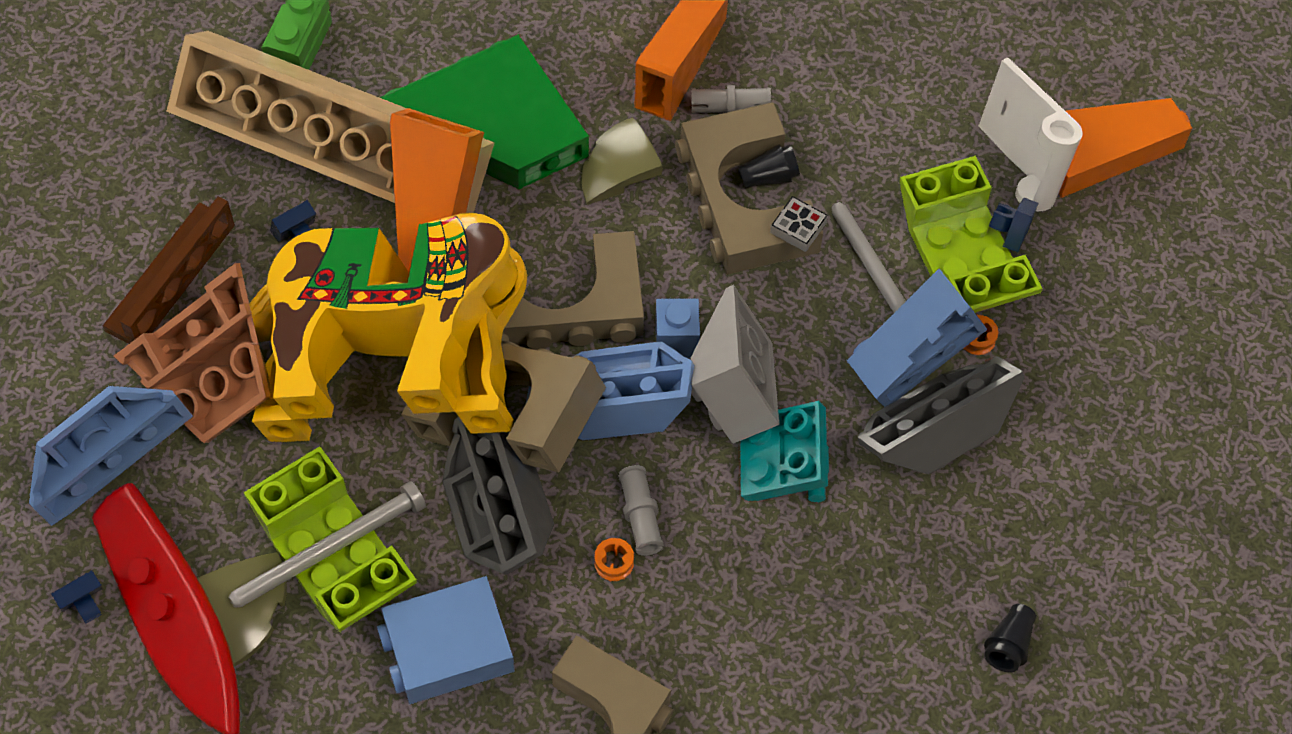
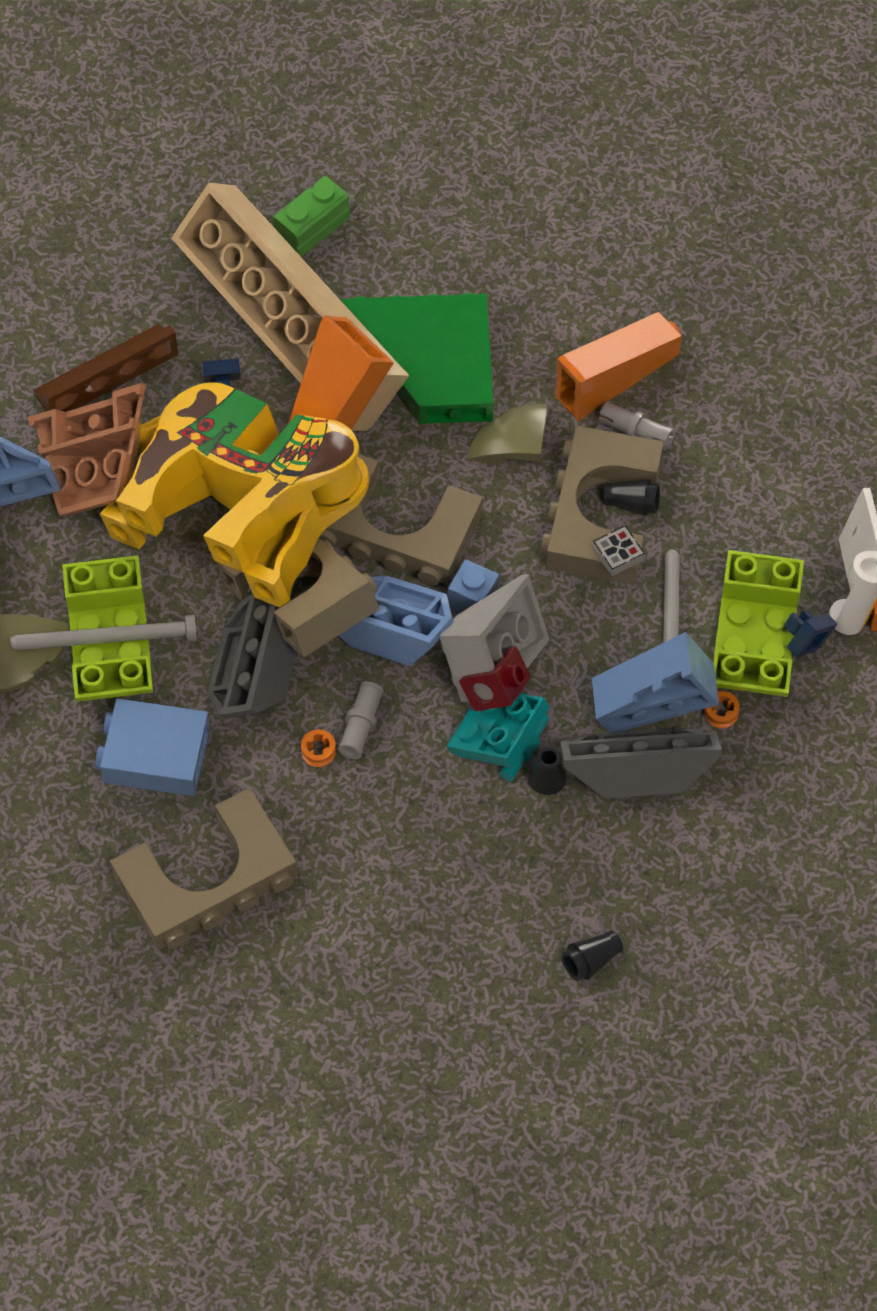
camera: 30 degrees right, 0 degrees up
(774, 404) = (505, 682): none -> dark red bracket
(857, 474) = (547, 773): none -> black cone

